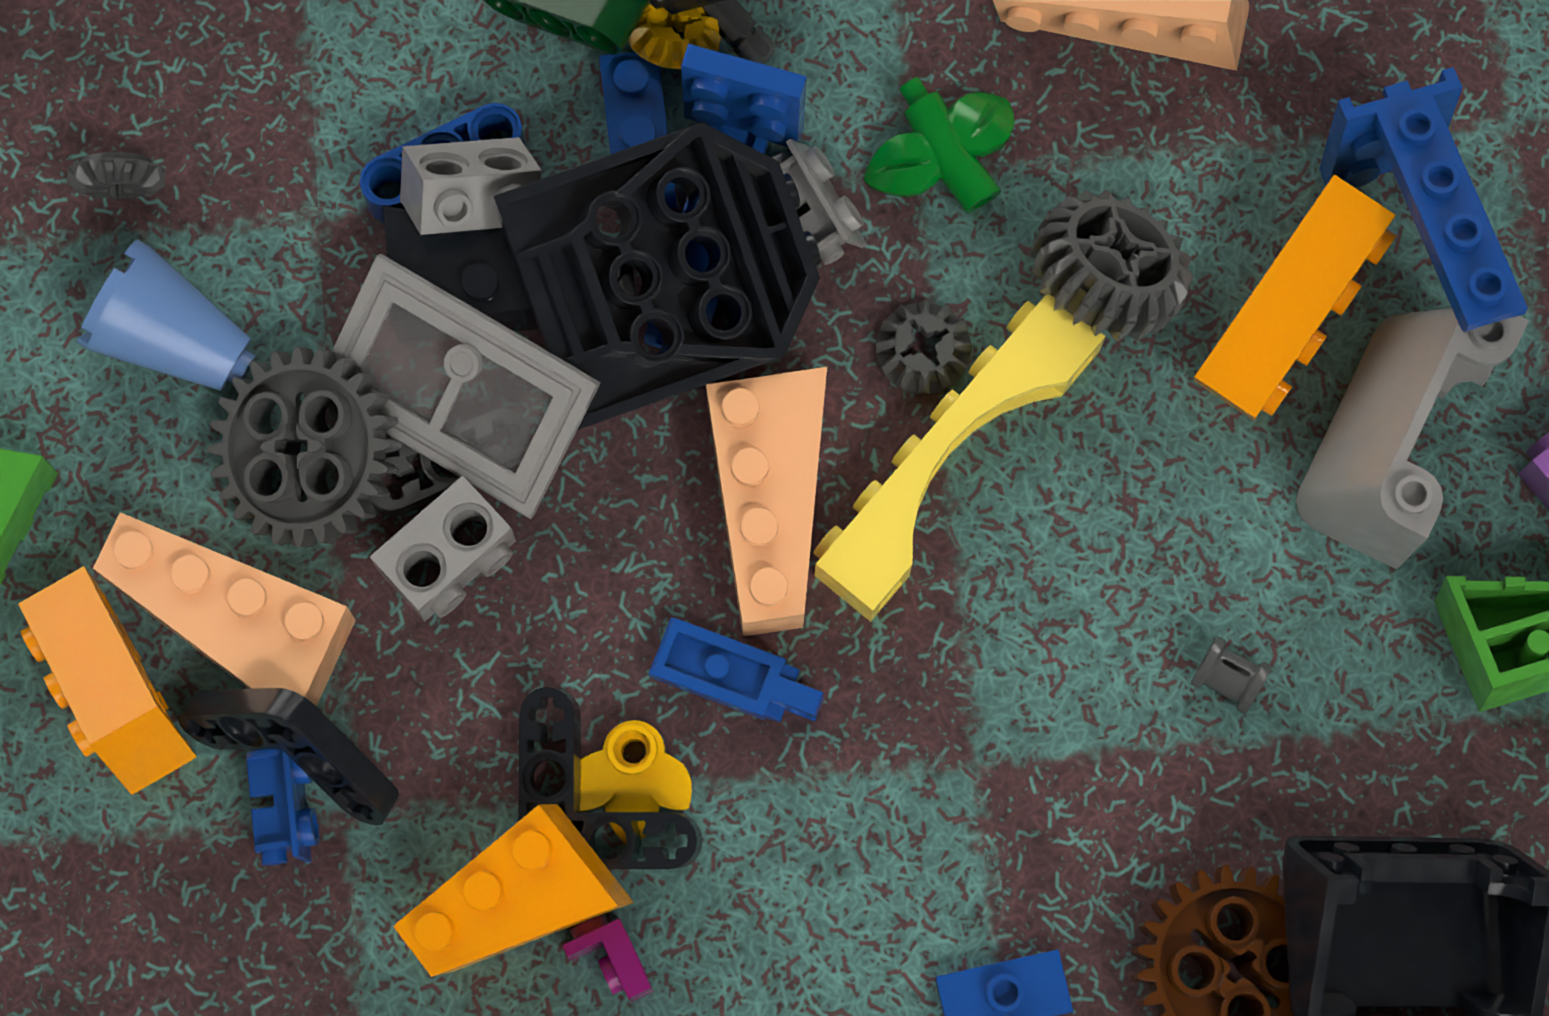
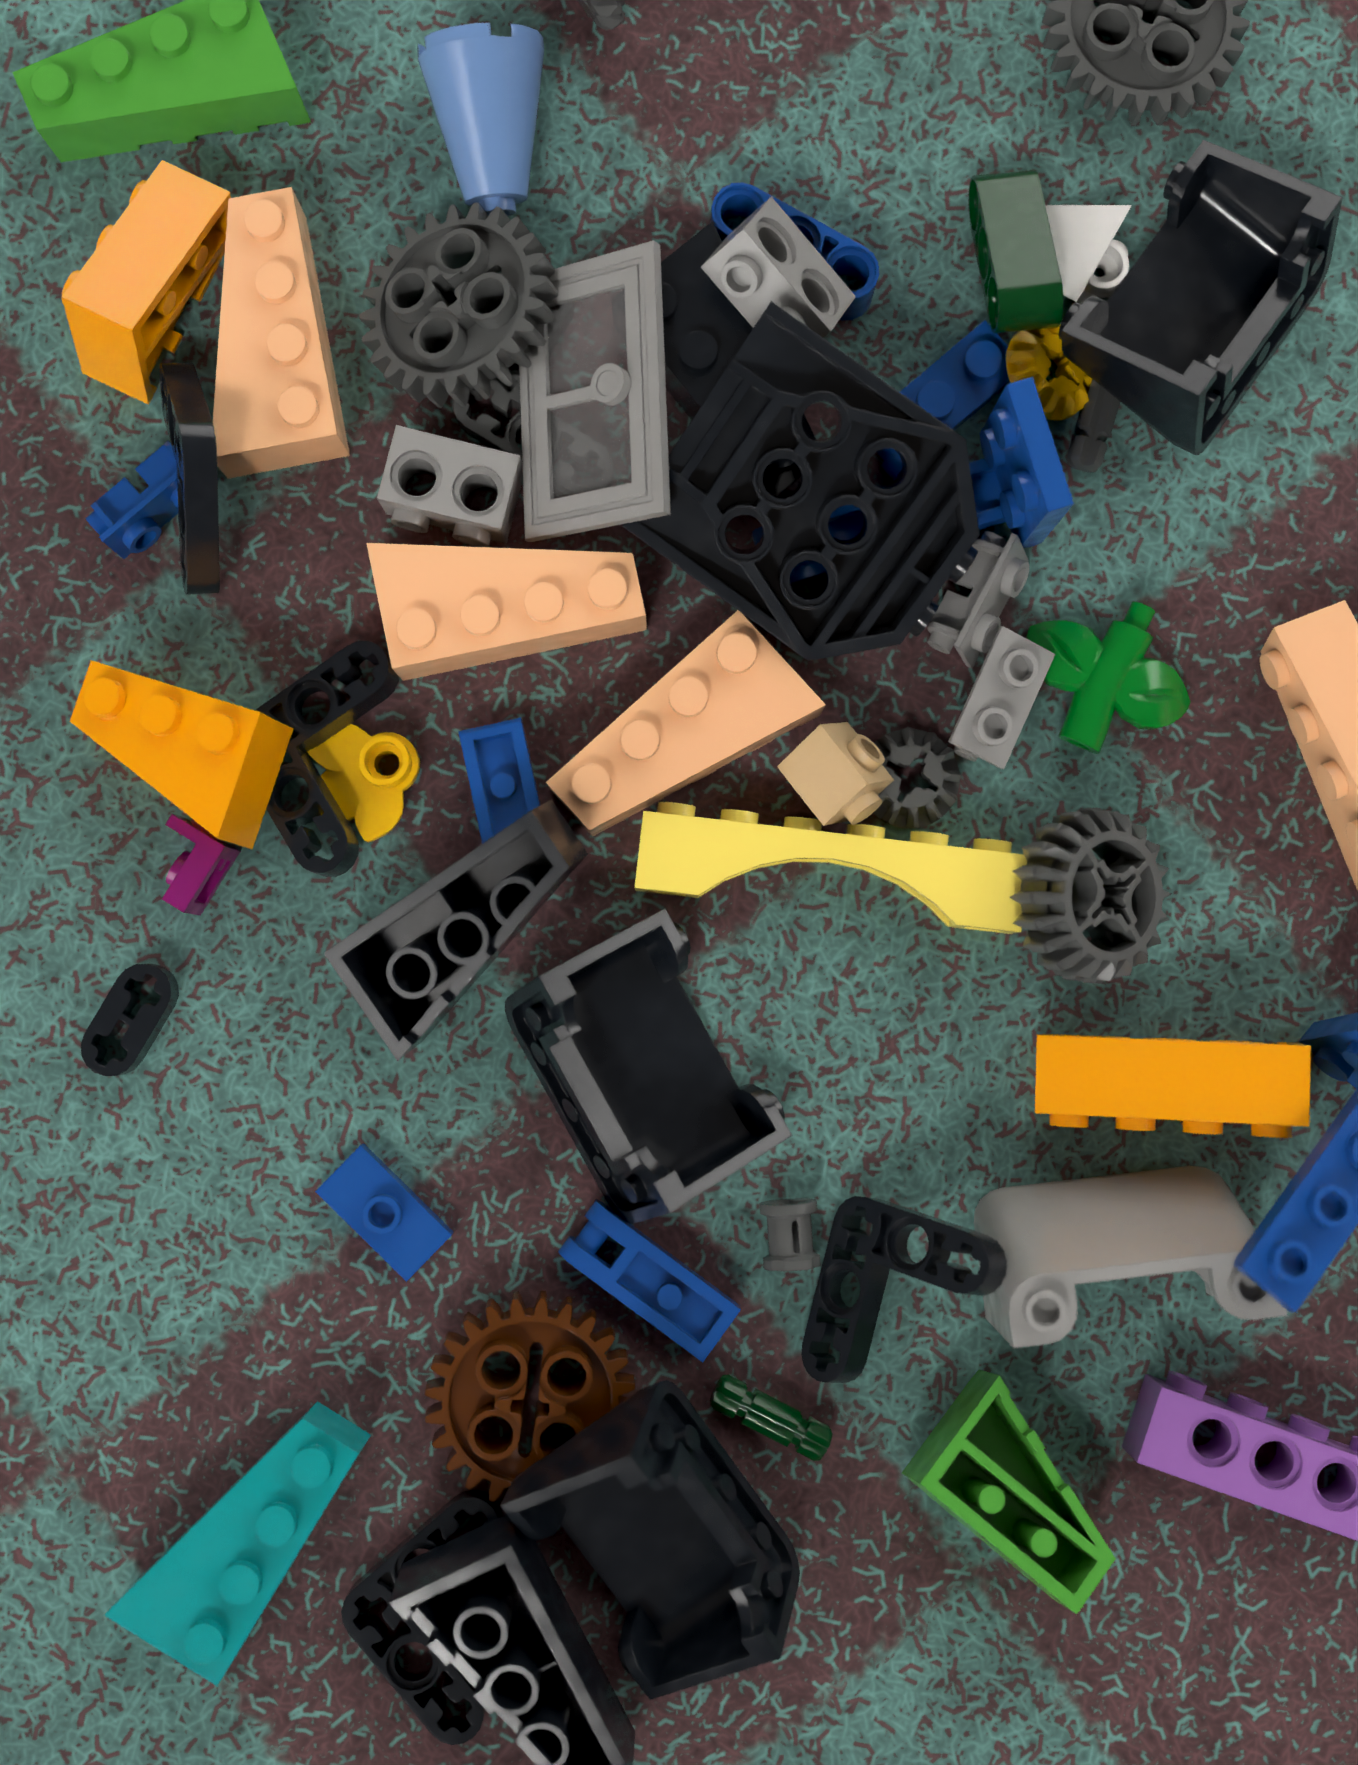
camera: 55 degrees right, 10 degrees up
(563, 578) = (496, 604): none -> light nougat wedge
(811, 782) = (442, 936): none -> black wedge
(886, 395) = (837, 774): none -> tan brick
(909, 235) = (1001, 698): none -> light grey hinge
(1024, 711) = (640, 1073): none -> black windscreen
(1200, 810) = (651, 1282): none -> blue plate
(1289, 606) = (885, 1251): none -> black beam
(1370, 788) = (771, 1417): none -> dark green axle

